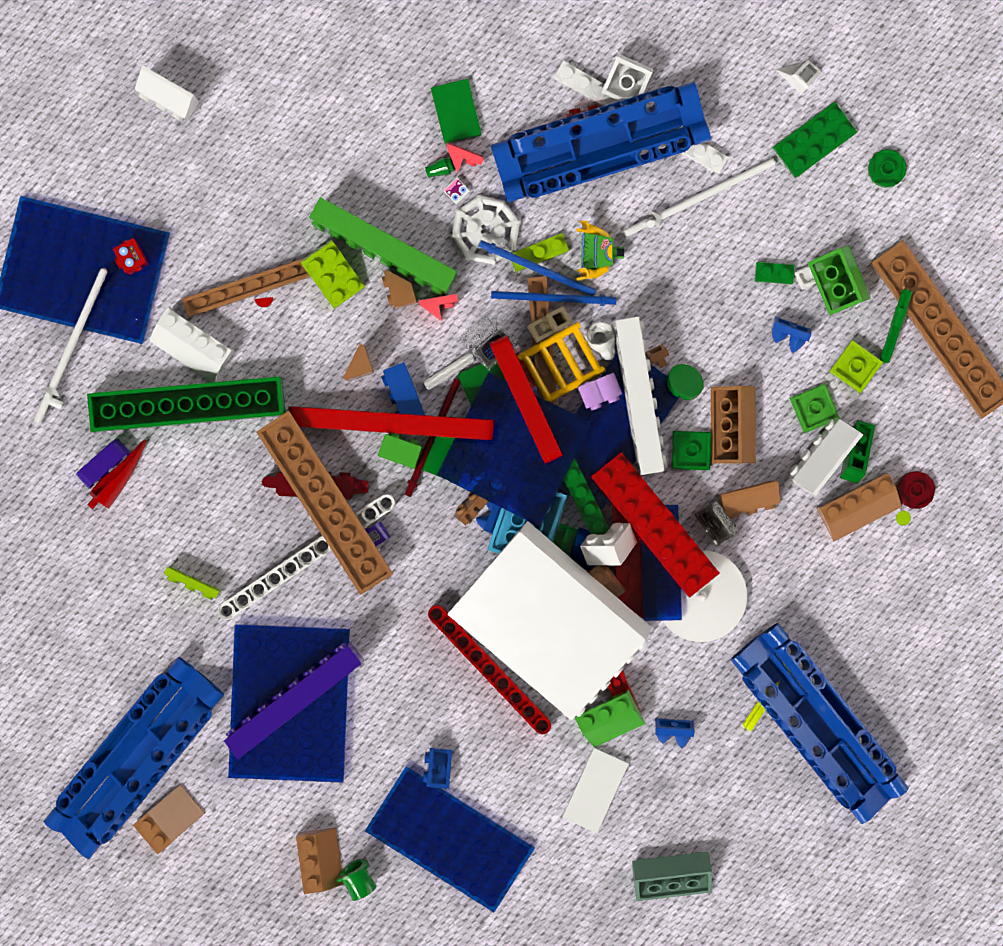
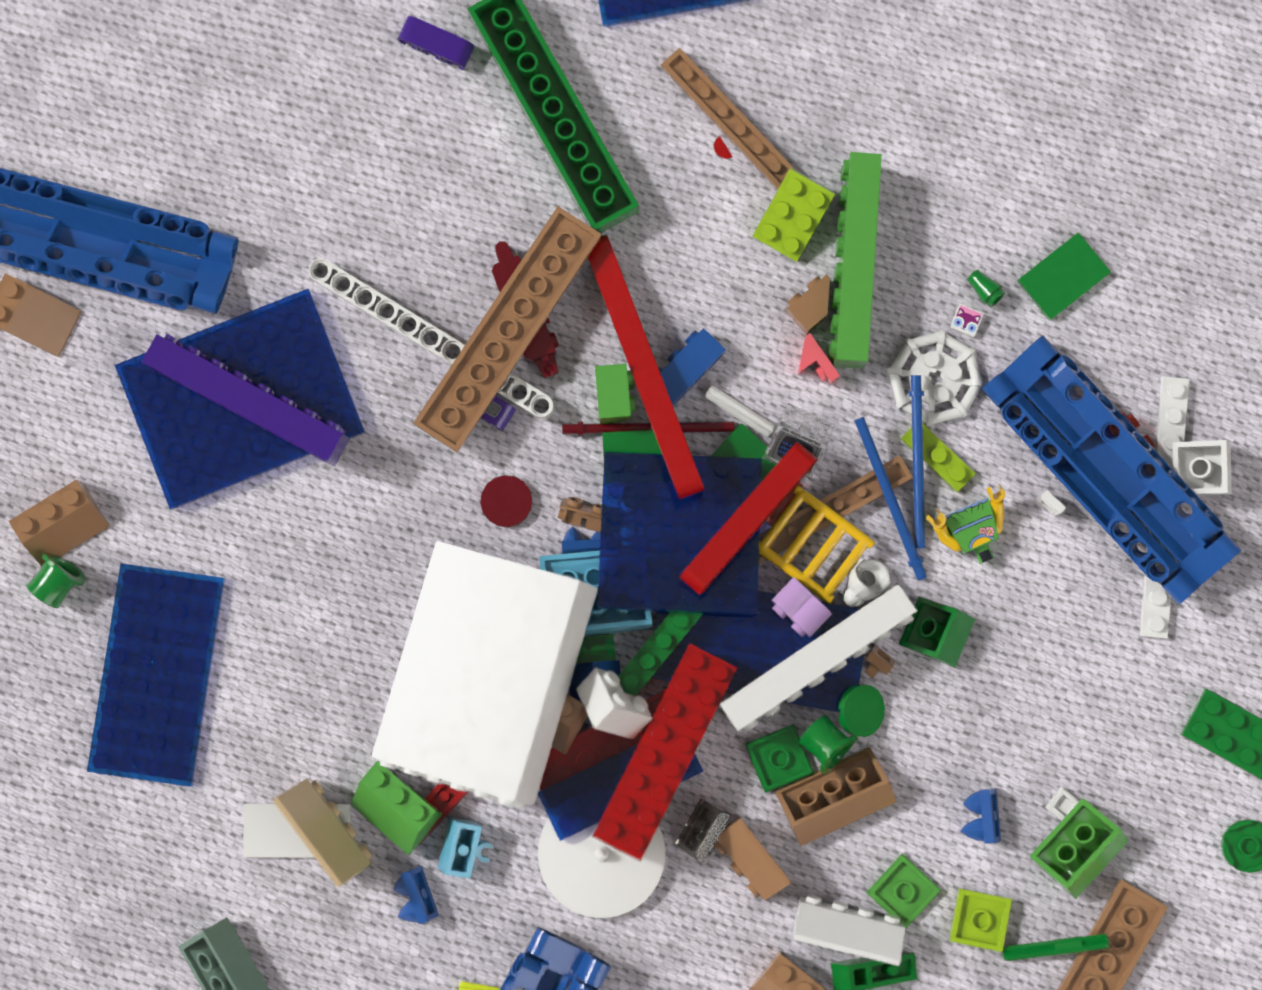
camera: 75 degrees right, 5 degrees down
(112, 484) = (414, 65): red piece -> none
(190, 345) = (628, 83): white slope -> none
(192, 583) = (336, 214): lime plate -> none
(360, 365) = (697, 296): medium nougat slope -> none
(438, 768) = (238, 619): blue bracket -> none
(439, 554) = (506, 501): none -> dark red tile
(458, 153) = (1013, 300): coral slope -> none
(492, 678) = (381, 637): red beam -> none
(549, 324) = (855, 507): dark tan brick -> none
(604, 192) = (1050, 503): none -> white tile
(606, 772) = (324, 831): none -> tan slope
(656, 218) = (1049, 582): white piece -> none
(656, 307) = (937, 631): none -> green slope
(656, 686) = (461, 847): none -> medium azure brick
(696, 415) = (826, 743): none -> green piece
(774, 273) = (1049, 762): green plate -> none

